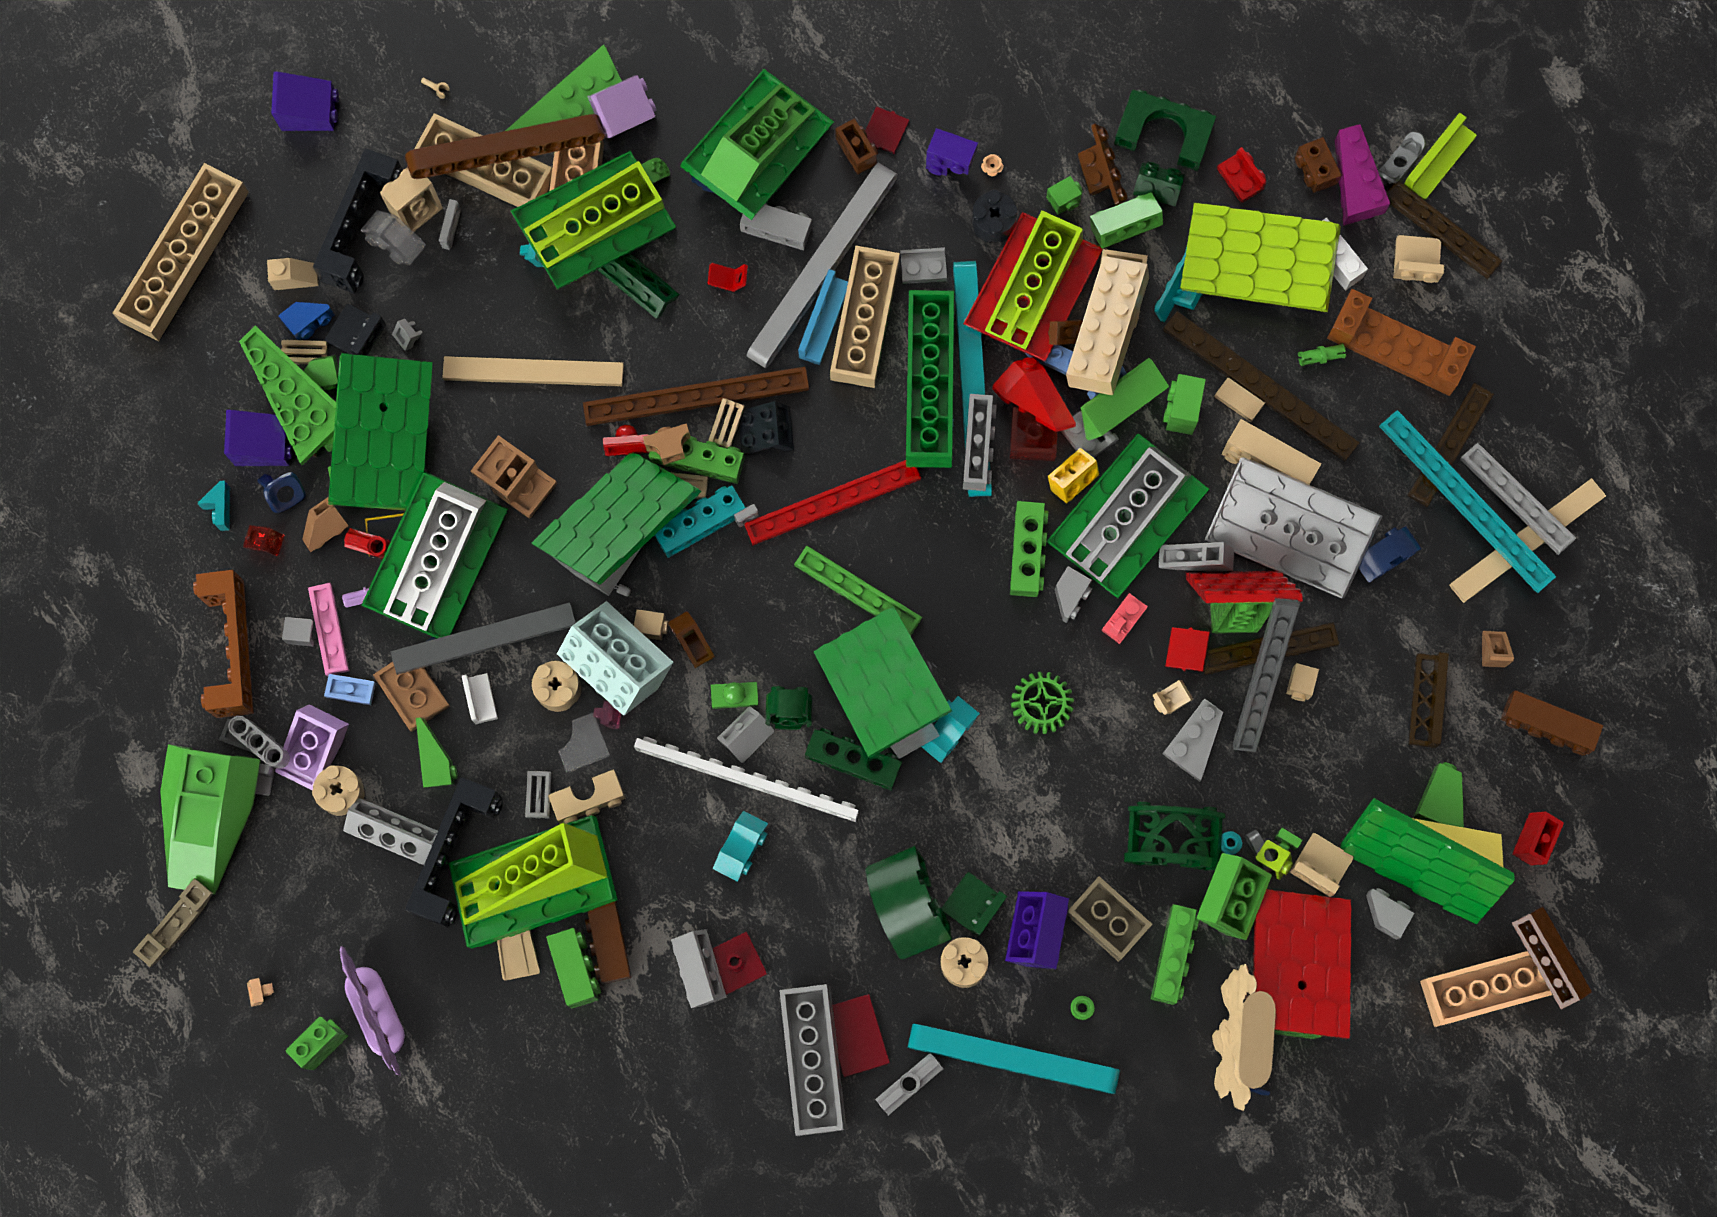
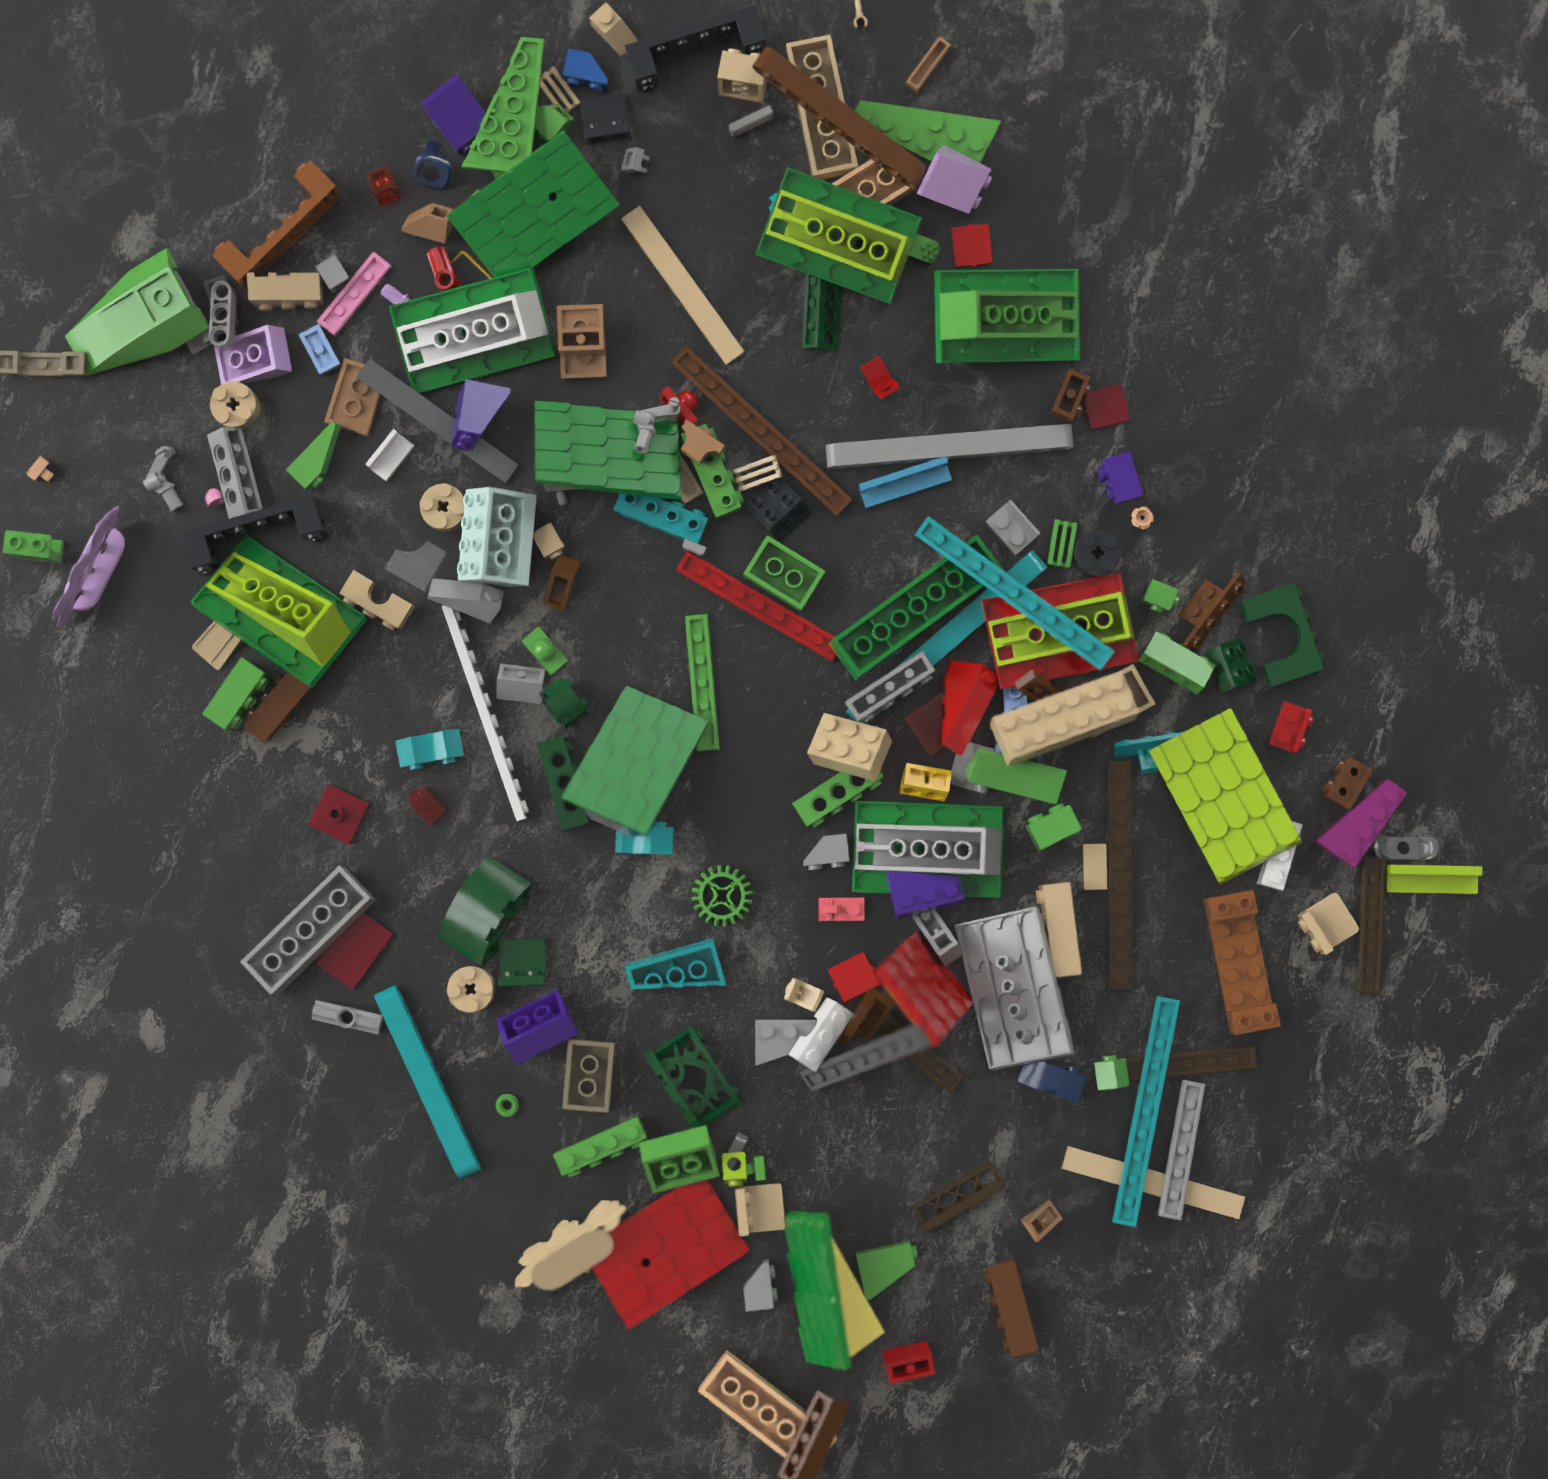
camera: 55 degrees right, 10 degrees up
(218, 499) = (389, 125): teal slope -> none
(281, 678) = (285, 291): none -> tan wedge
(346, 902) = (157, 482): none -> light grey pin
(392, 234) = (703, 82): clear brick -> none
(398, 865) = (214, 498): none -> bright pink hinge
(500, 599) = (475, 411): none -> slope
(516, 64) = (928, 64): none -> medium nougat piece
(528, 814) = (362, 542): light grey tile -> none
(608, 715) = (450, 567): clear pink tile -> none
(616, 471) = (645, 421): none -> light grey pin
(646, 718) = (467, 597): none -> light grey slope
(680, 135) = (971, 245): none -> red piece
(698, 968) = (311, 790): light grey brick -> none
(779, 226) = (956, 388): light grey brick -> none
(783, 885) = (425, 805): none -> clear red bracket
(822, 460) = (784, 573): none -> bright green brick
(865, 316) = (948, 503): tan brick -> none
(953, 225) = (1065, 524): none -> bright green tile
(979, 291) = (1014, 593): none -> teal plate
(1001, 510) = (849, 747): none -> tan brick
(1076, 776) = (680, 967): none -> teal wedge
(1160, 542) = (922, 893): none -> dark purple wedge
(1223, 719) = (830, 1023): none -> white arch
(1225, 652) = (865, 1012): none -> reddish brown fence
(1231, 850) = (723, 1132): teal plate -> none
(1302, 682) = (895, 1087): tan brick -> none
(1322, 354) = (1184, 905): bright green pin -> none
(1416, 505) = (1111, 1073): none -> bright green brick

